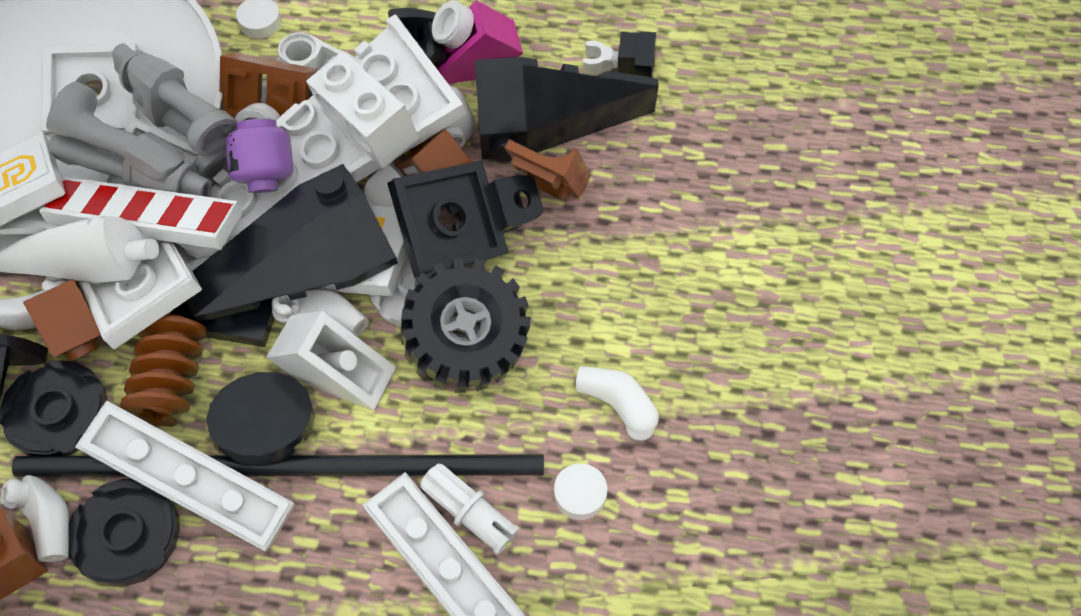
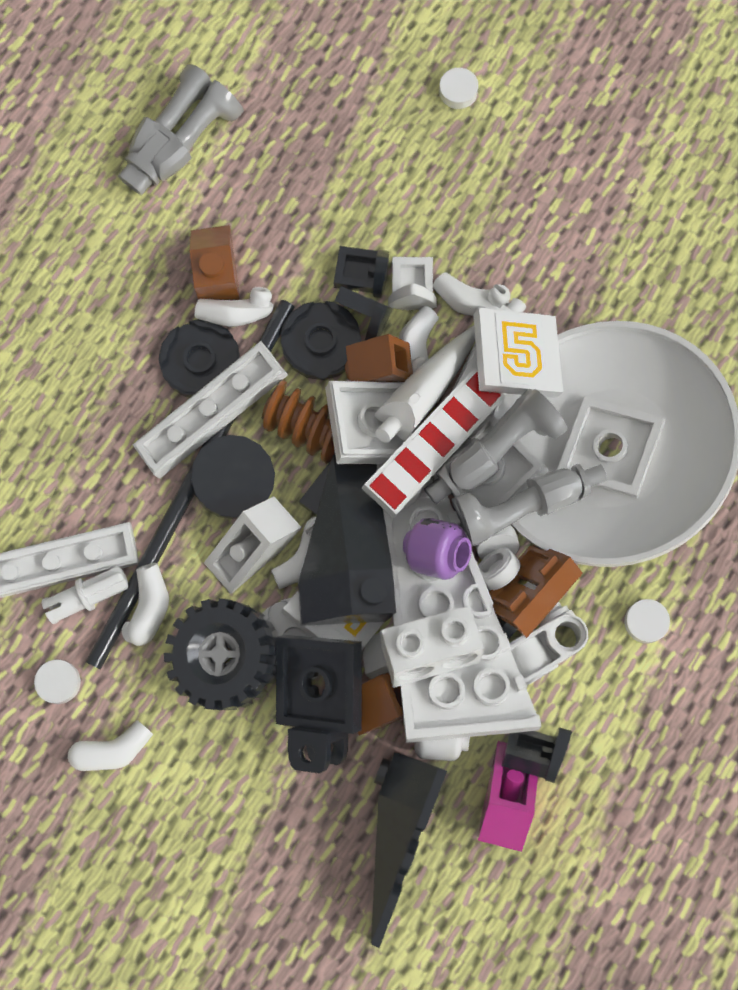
camera: 120 degrees right, 15 degrees up
(448, 431) = (151, 606): none -> white arm
(452, 24) = (525, 783): white tile -> none
(552, 175) = (328, 790): dark orange piece -> none
(634, 56) = (430, 948): black piece -> none

